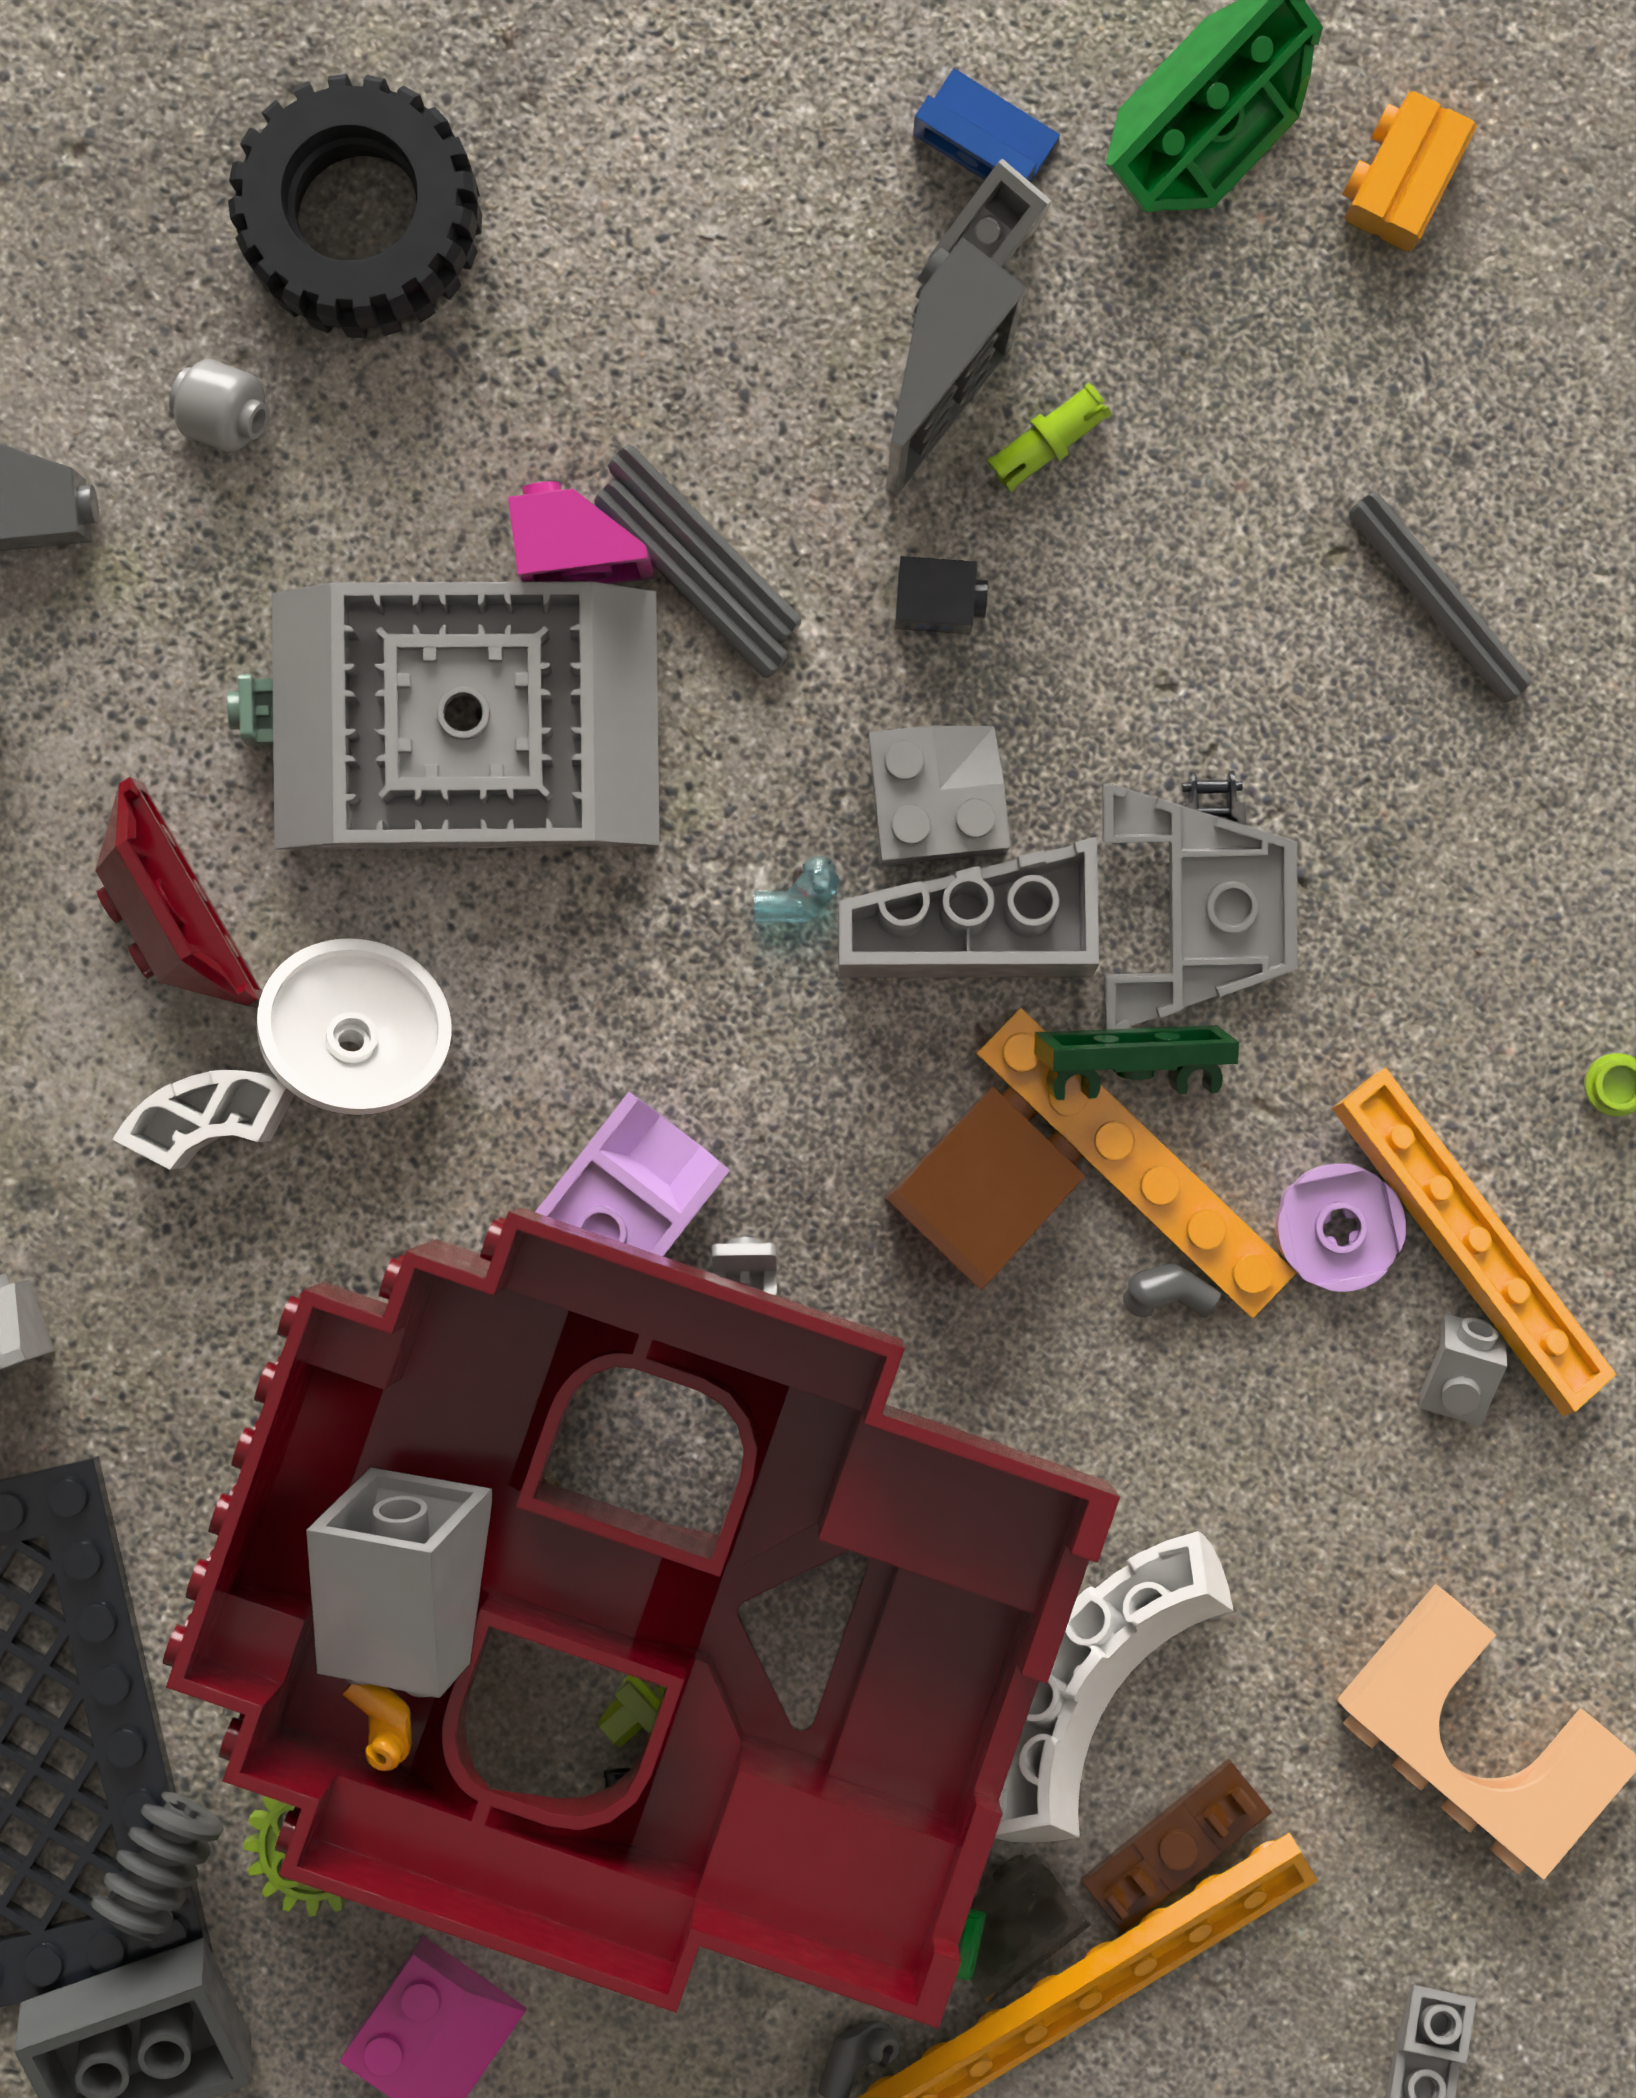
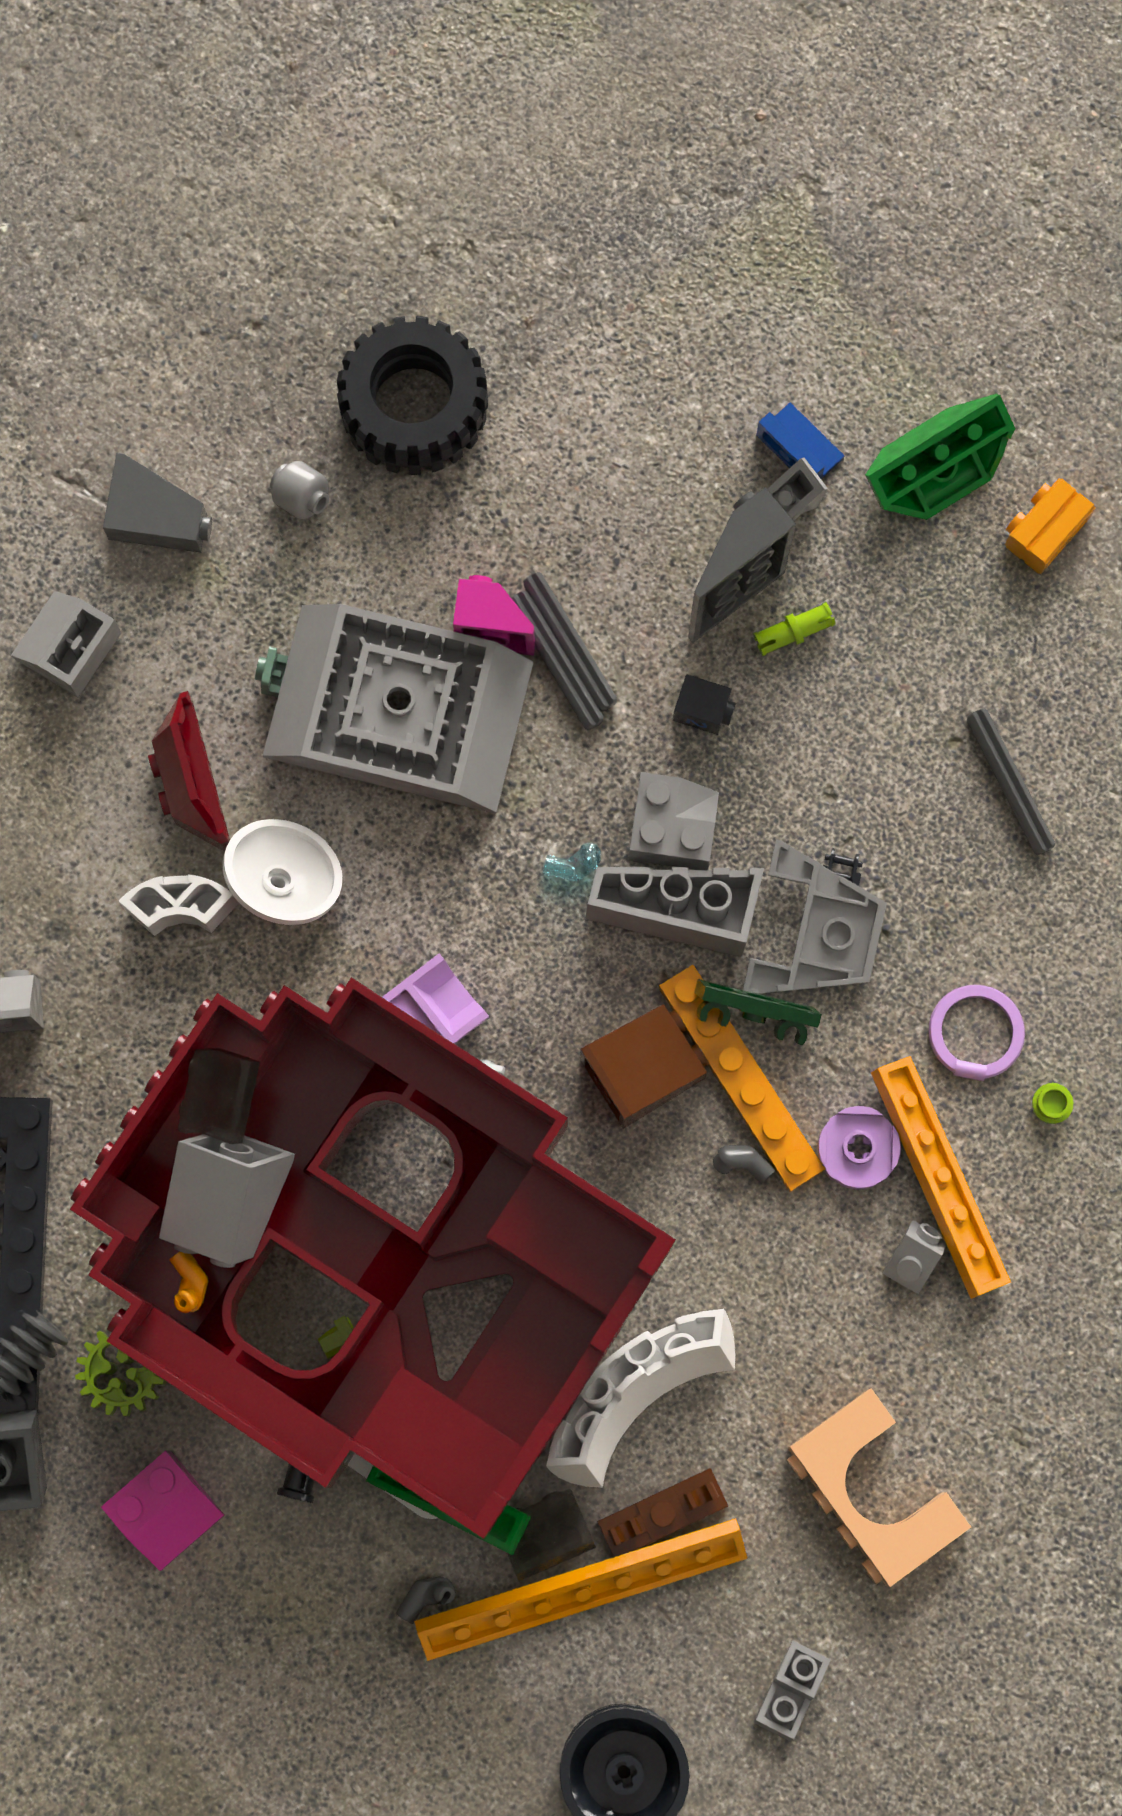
camera: 15 degrees right, 10 degrees down
(349, 1433) = (218, 1094): none -> clear smoke bracket
(1476, 1063) = (968, 1069): none -> lavender piece

